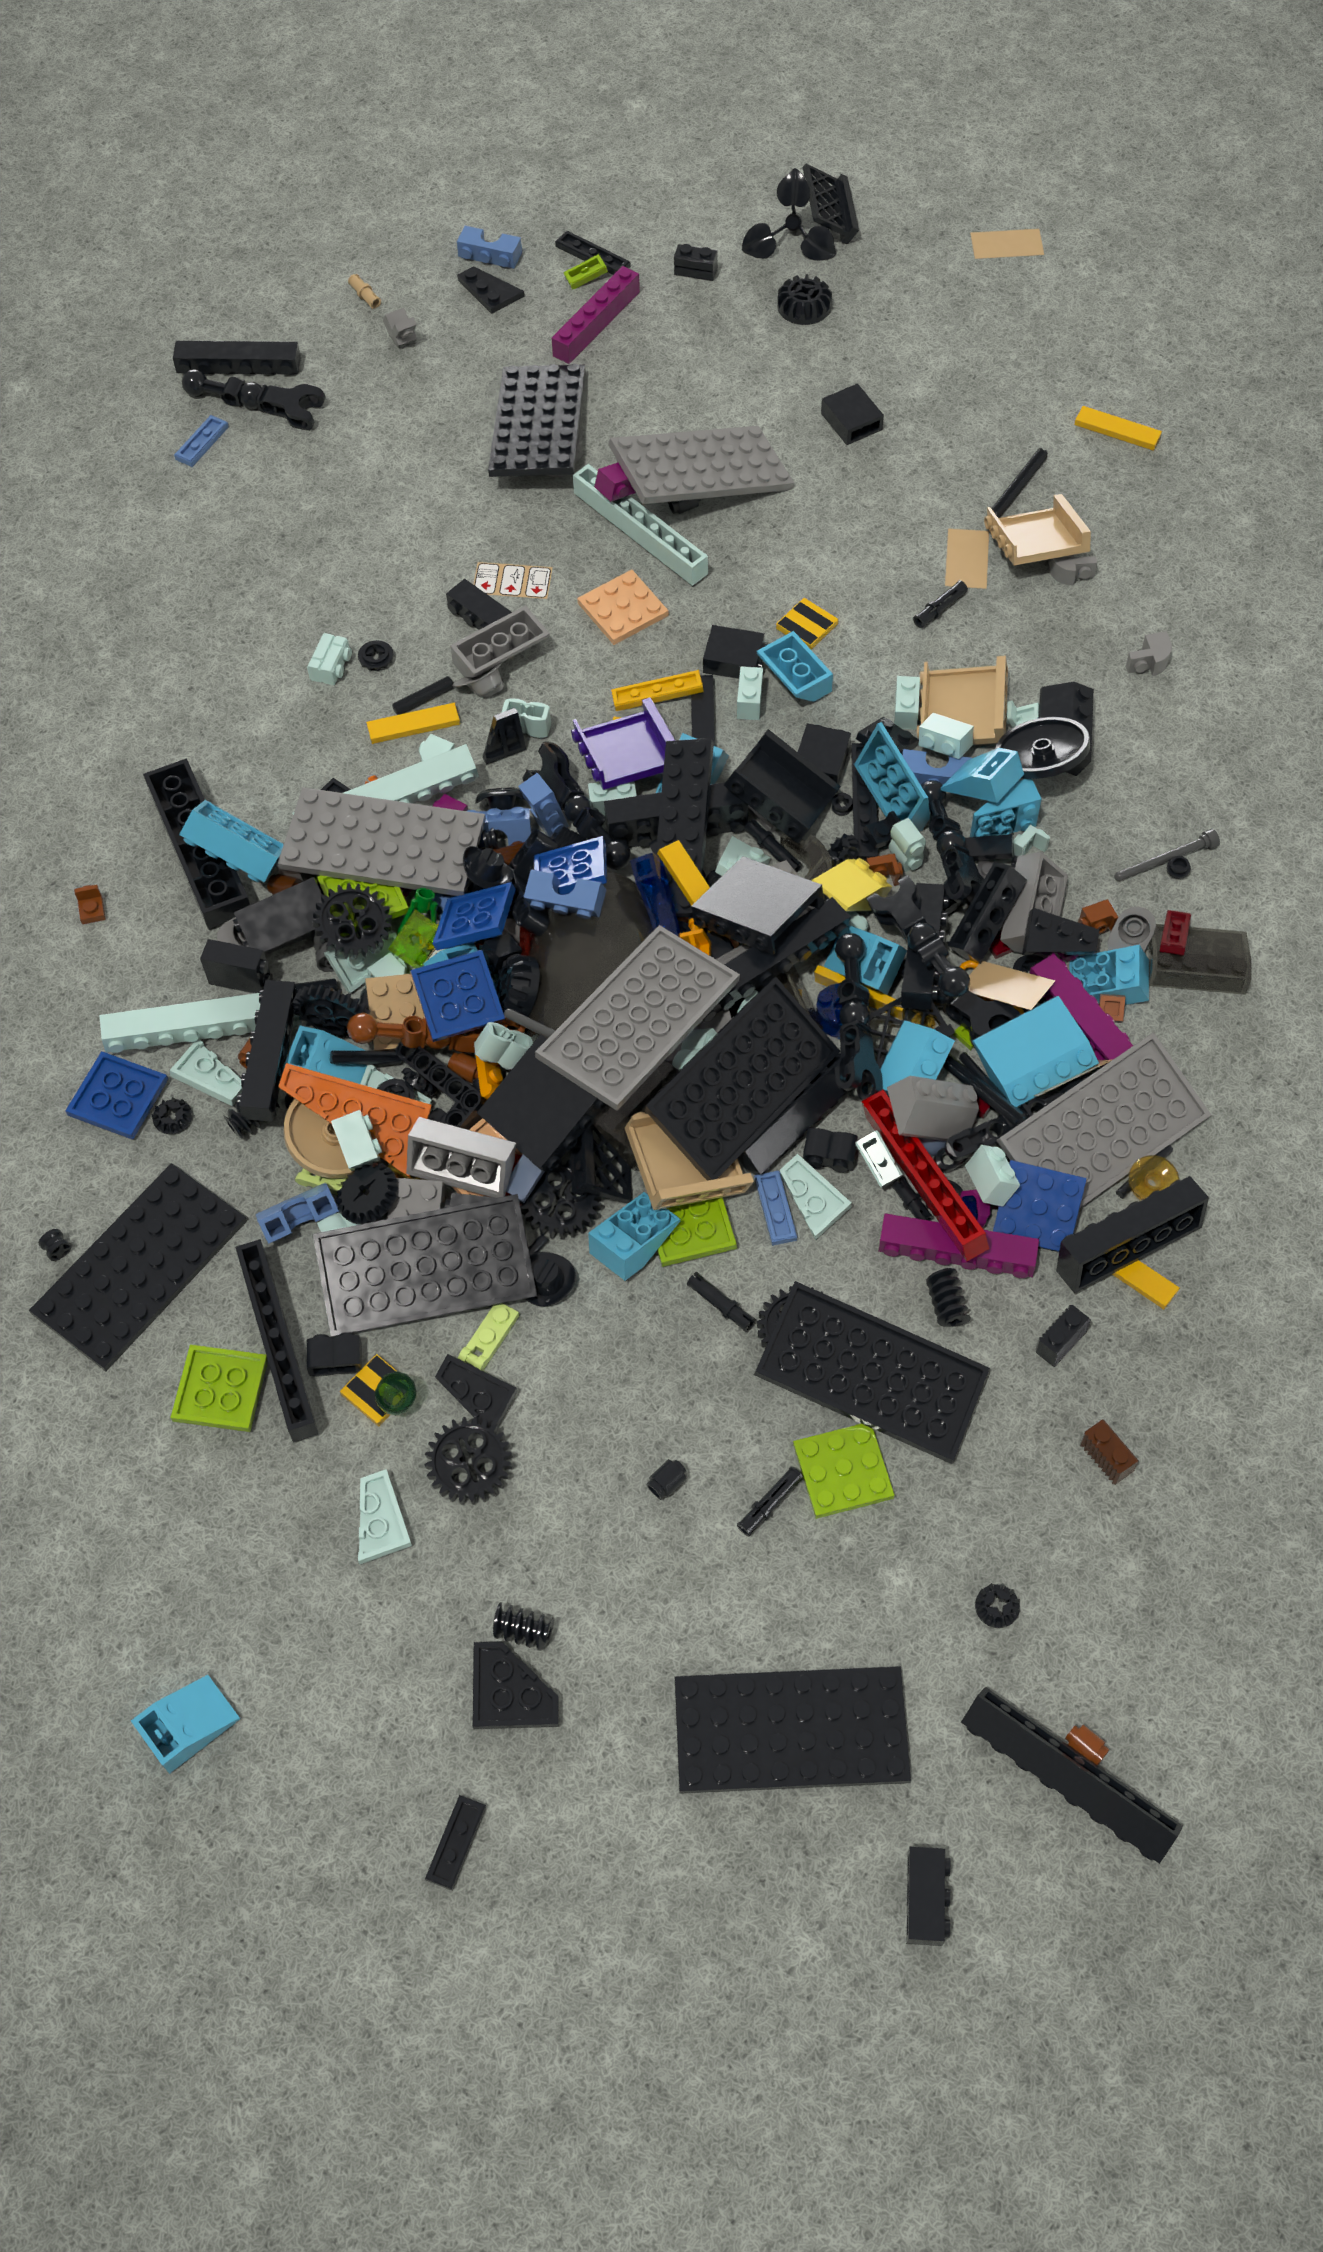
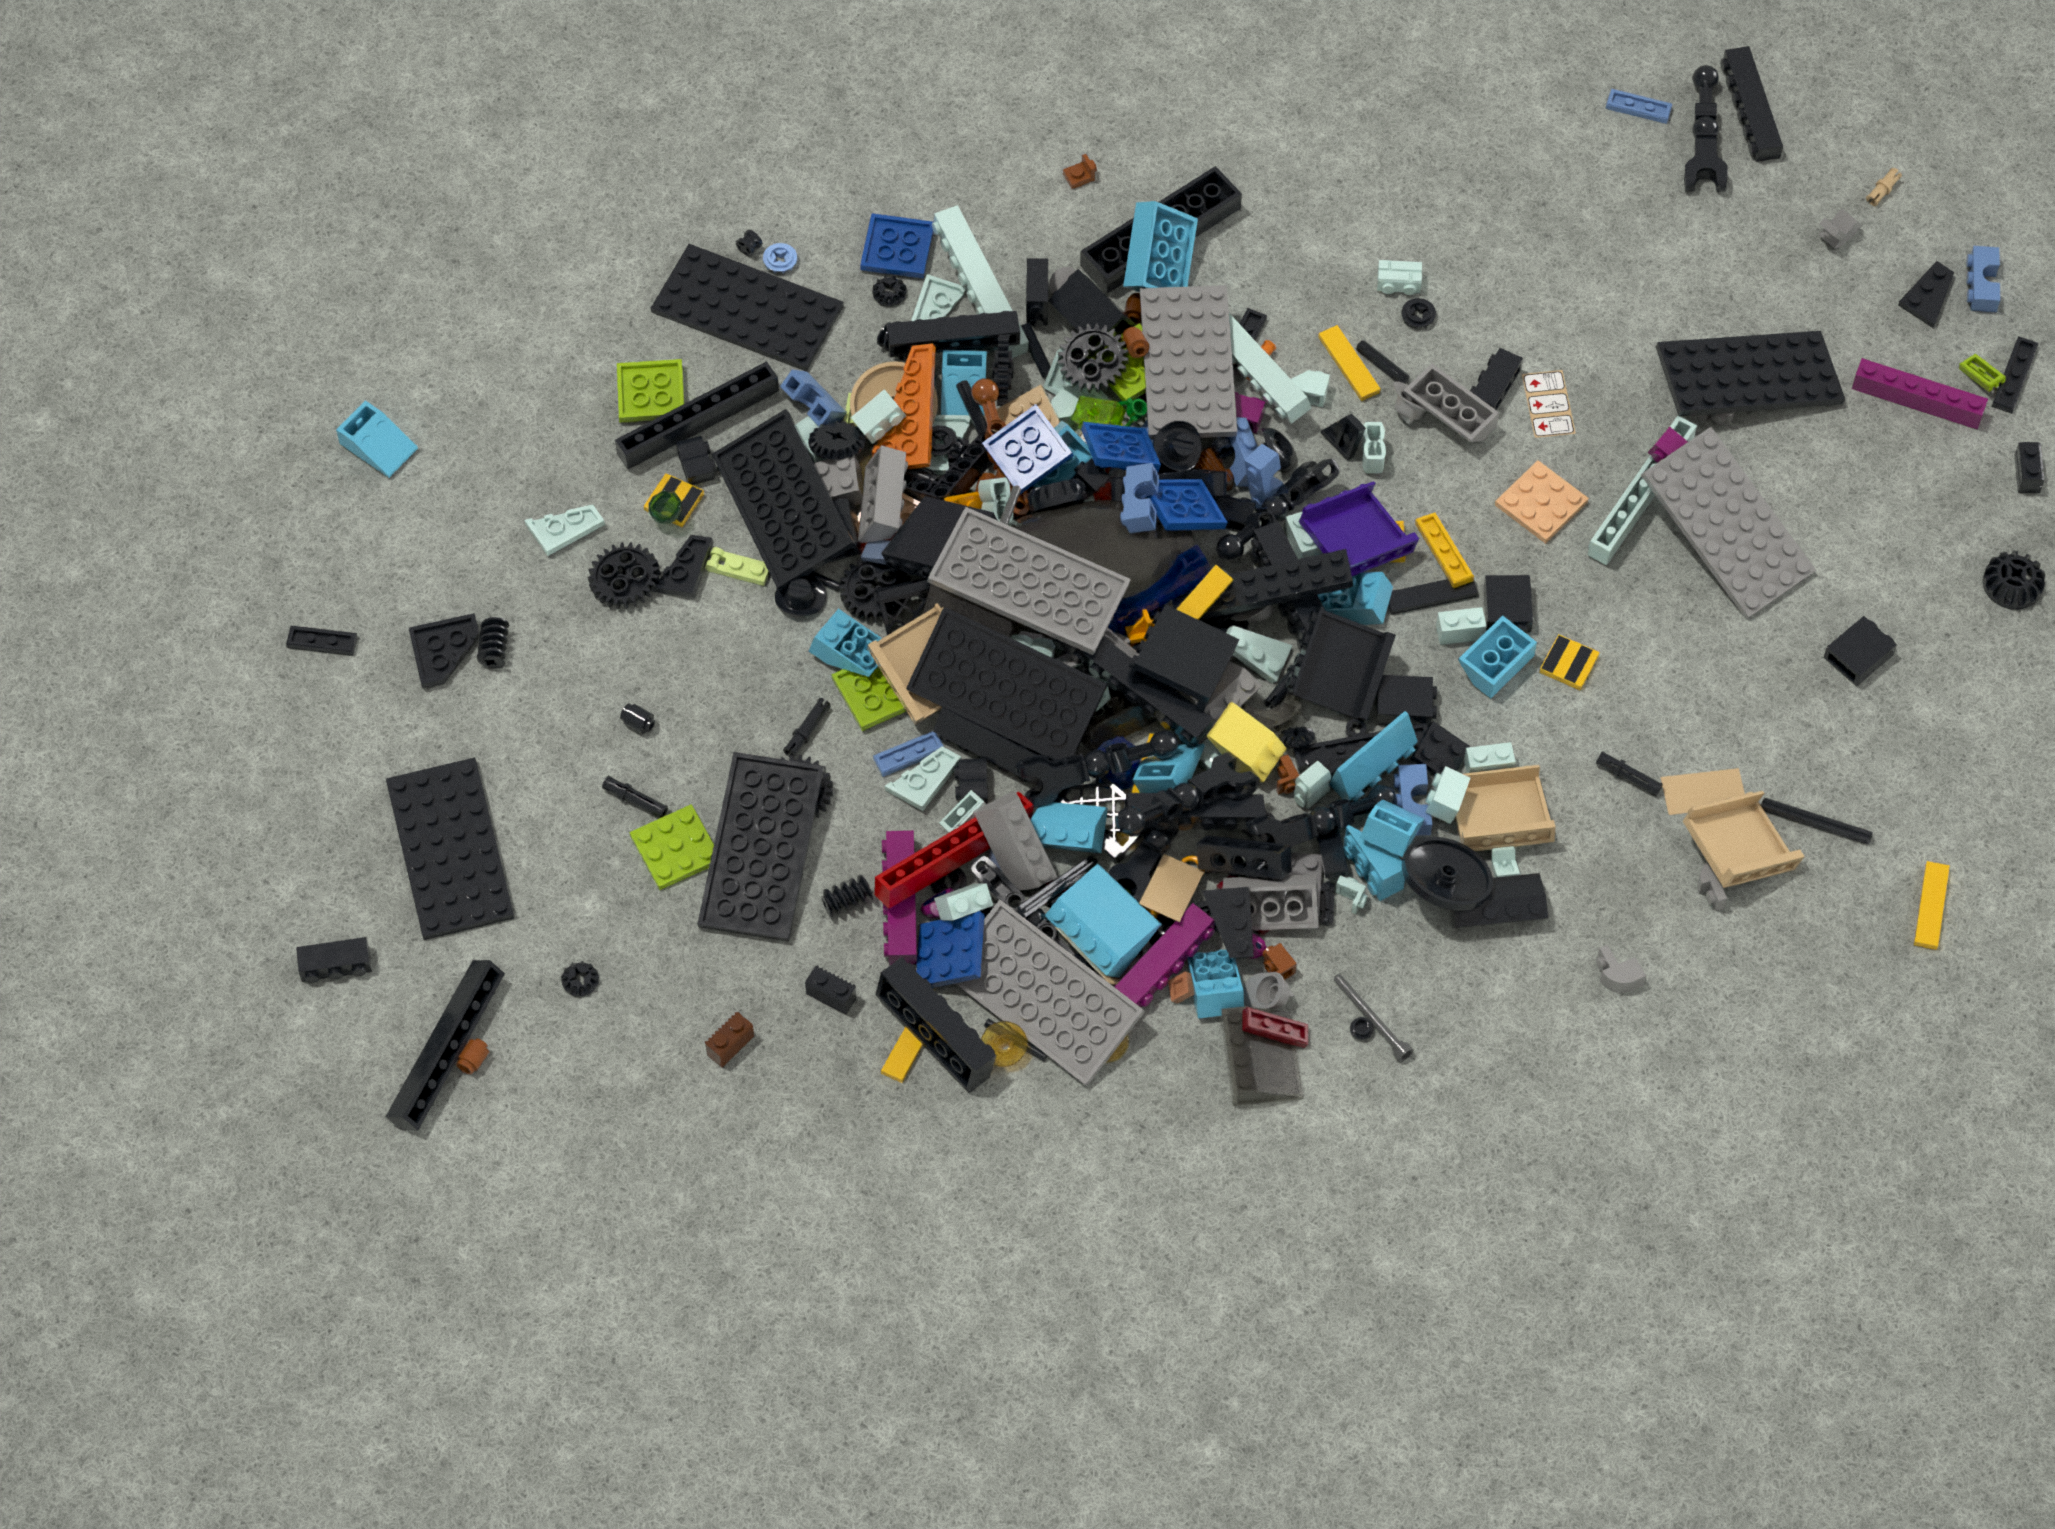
camera: 75 degrees right, 0 degrees up
(93, 1209) = (780, 250): none -> light blue gear
(348, 874) = (1135, 342): none -> dark orange brick

